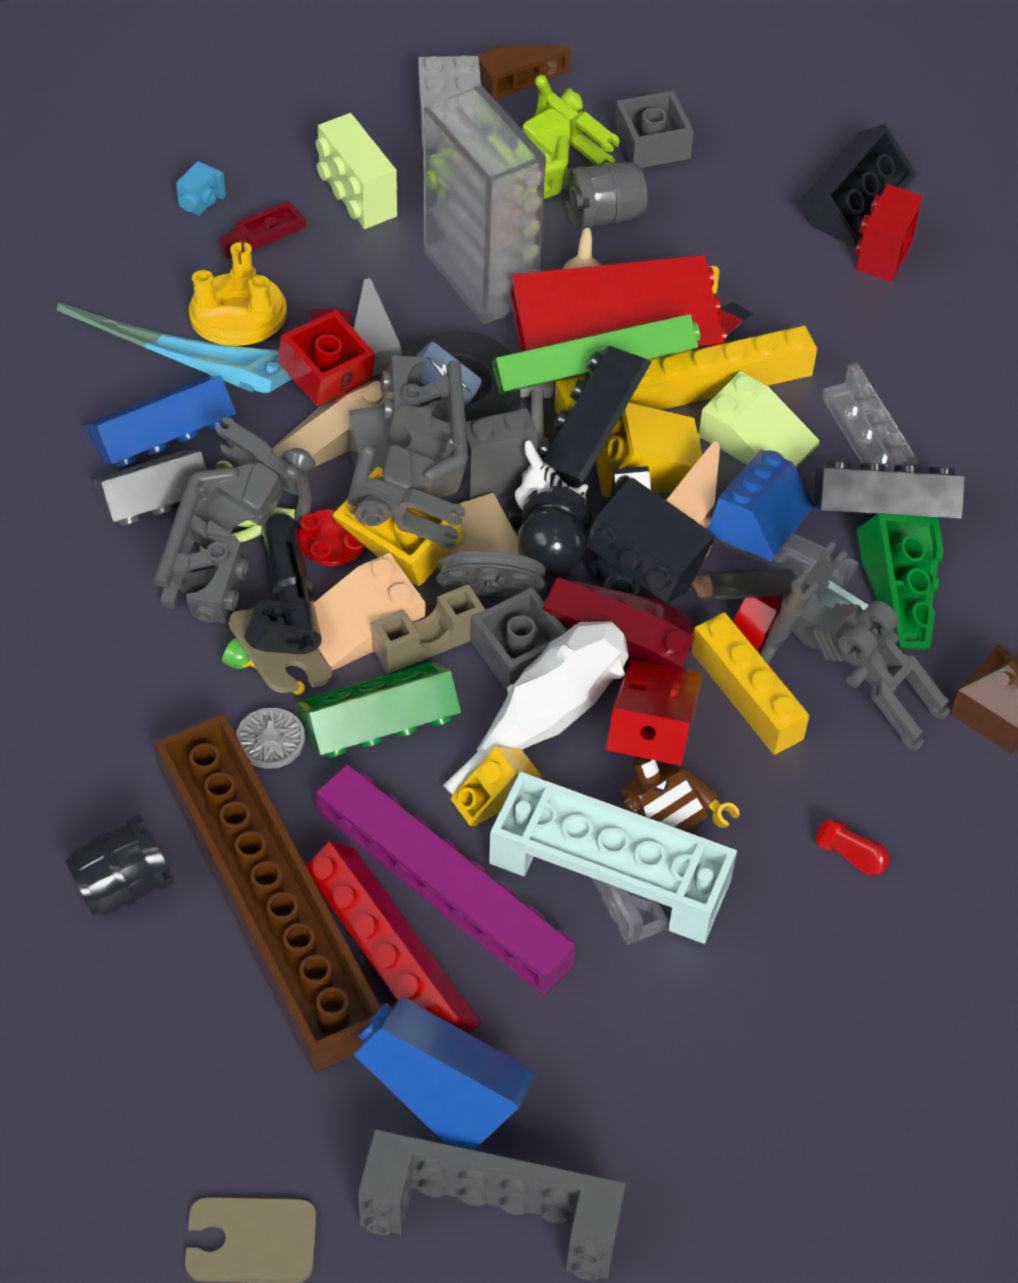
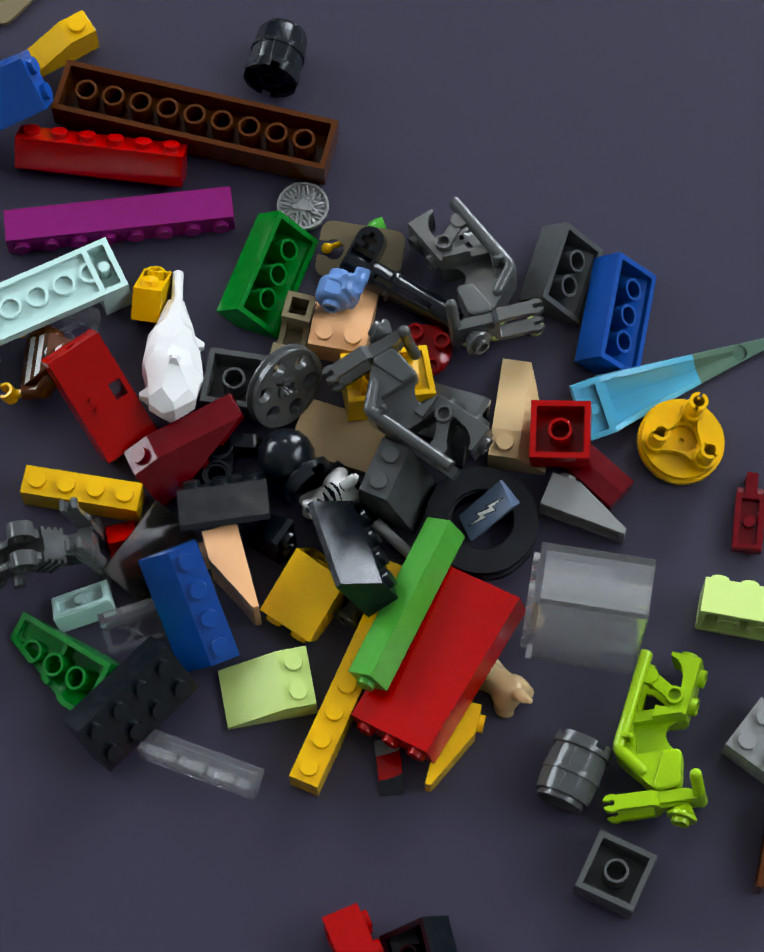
camera: 135 degrees right, 15 degrees up
(294, 1107) = (65, 40): none -> yellow slope
(344, 602) = (341, 289): none -> medium blue head

